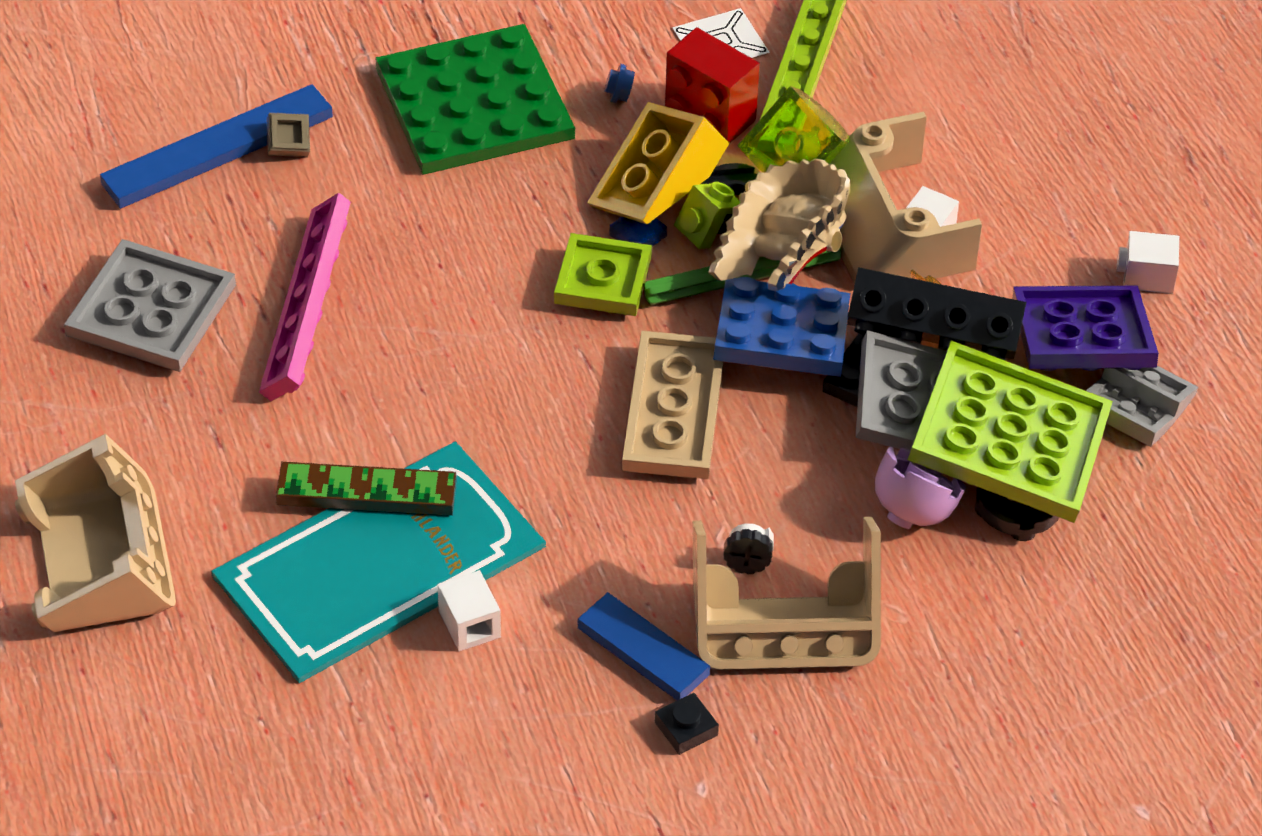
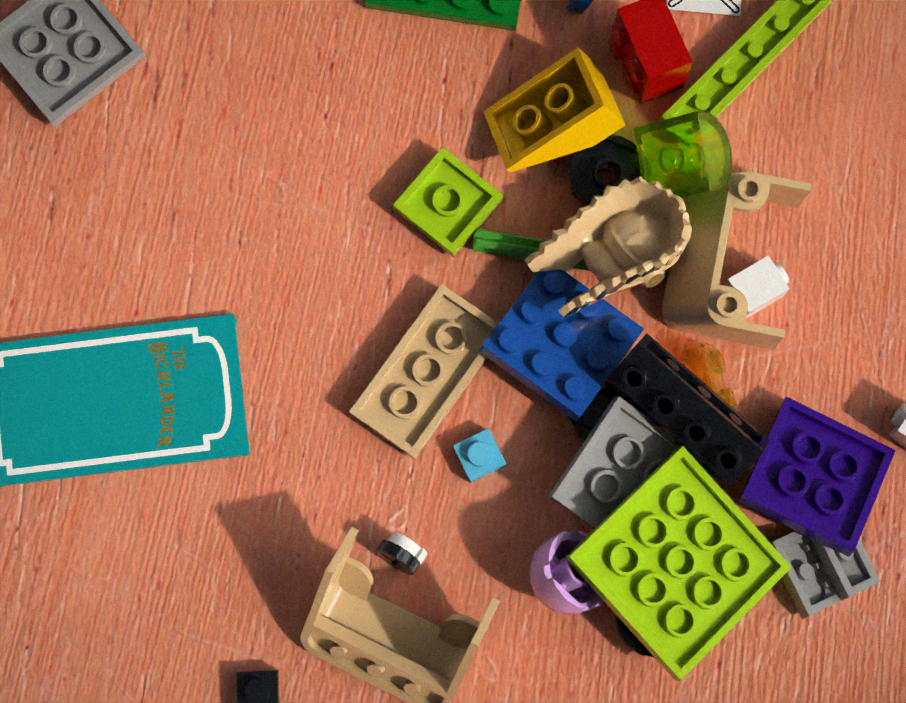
camera: 30 degrees right, 30 degrees up
(305, 298) = (190, 102): dark pink plate -> none
(366, 488) = (133, 330): tile -> none
(469, 610) = (145, 496): white brick -> none
(634, 231) = (499, 175): clear blue tile -> none
(643, 646) = (266, 600): blue tile -> none
(705, 212) = (570, 182): lime bracket -> none
(767, 450) = (479, 455): none -> medium azure plate

